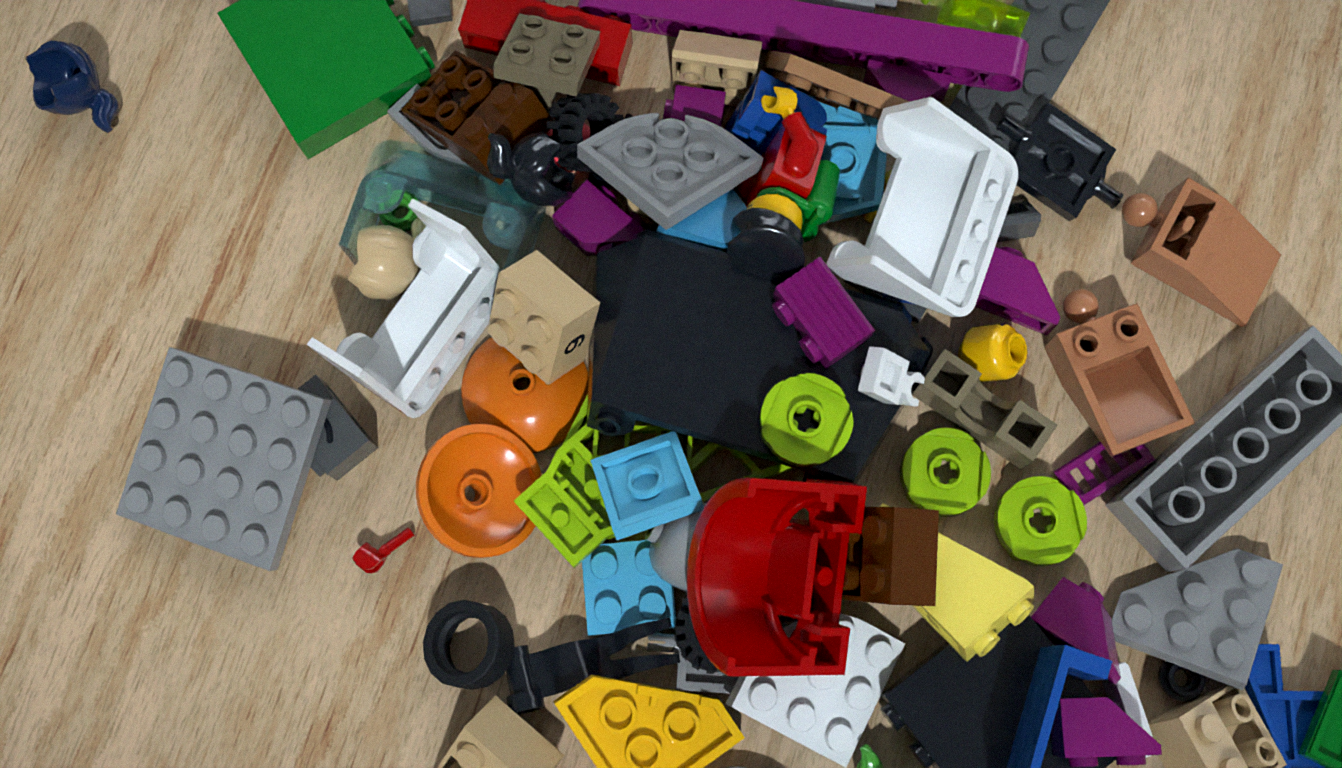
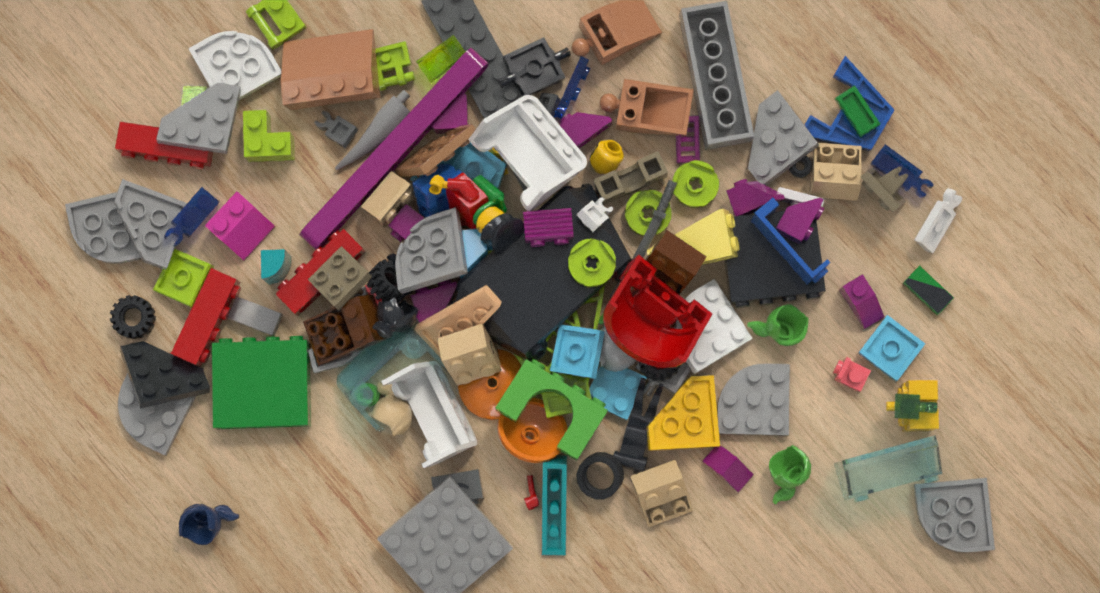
camera: 55 degrees left, 5 degrees up
(381, 597) = (554, 506): none -> teal slope
(552, 559) = (534, 380): none -> bright green arch
(599, 267) = (463, 314): none -> light nougat wing
(945, 490) = (659, 214): none -> dark grey sword
(1063, 238) = (572, 90): none -> clear blue plate

